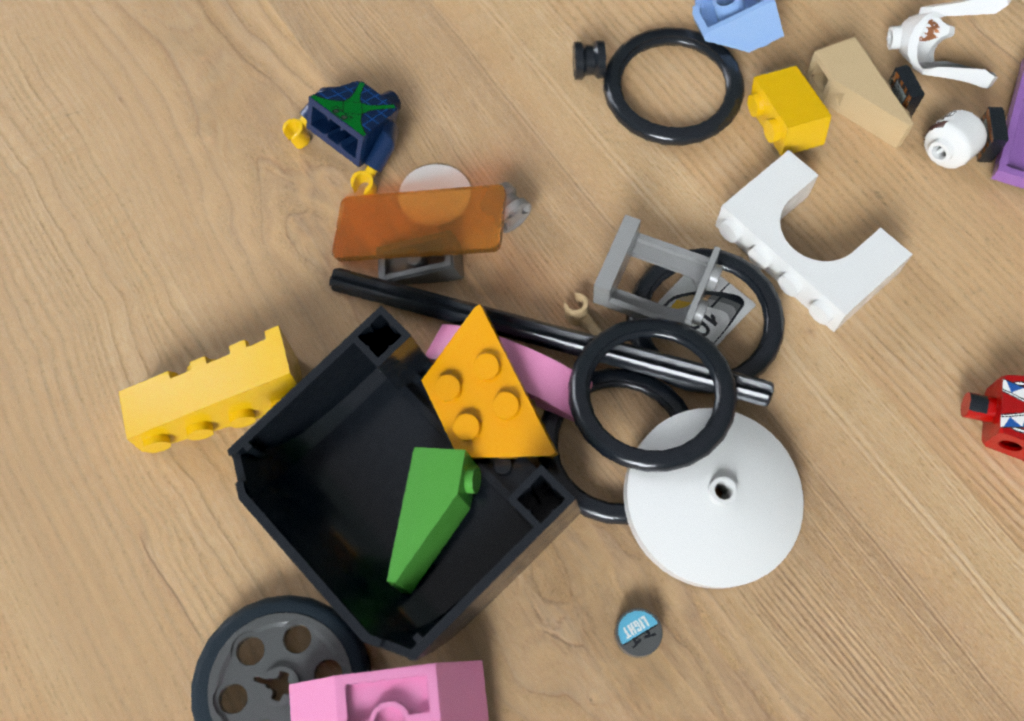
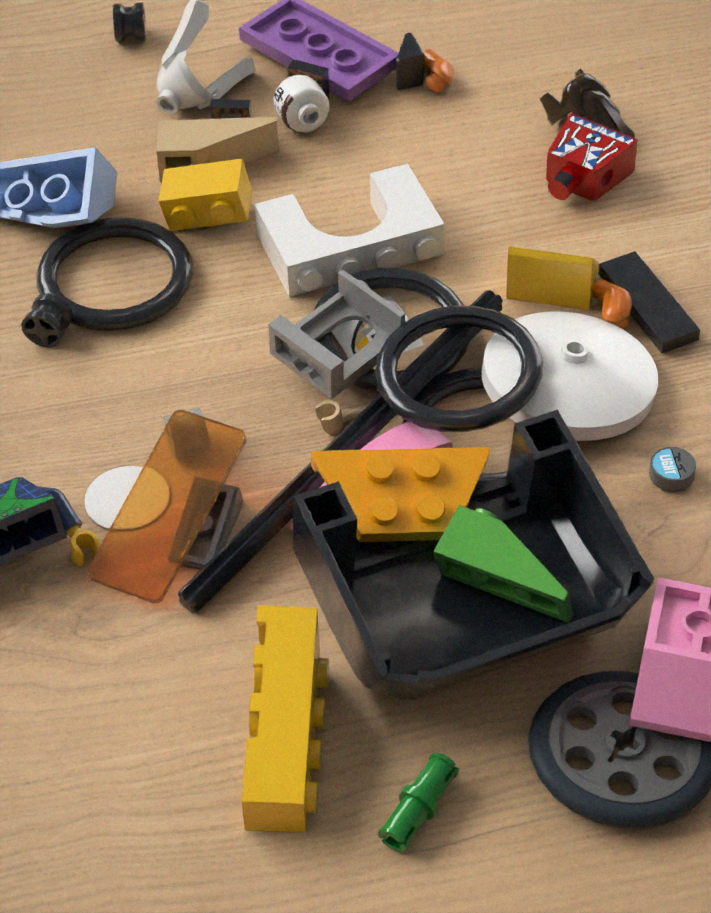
camera: 70 degrees left, 20 degrees down
(176, 528) = (418, 802): none -> green pin
(832, 510) = (615, 301): none -> orange arm
(845, 436) = (550, 277): none -> yellow slope
(857, 542) = (652, 303): none -> black tile

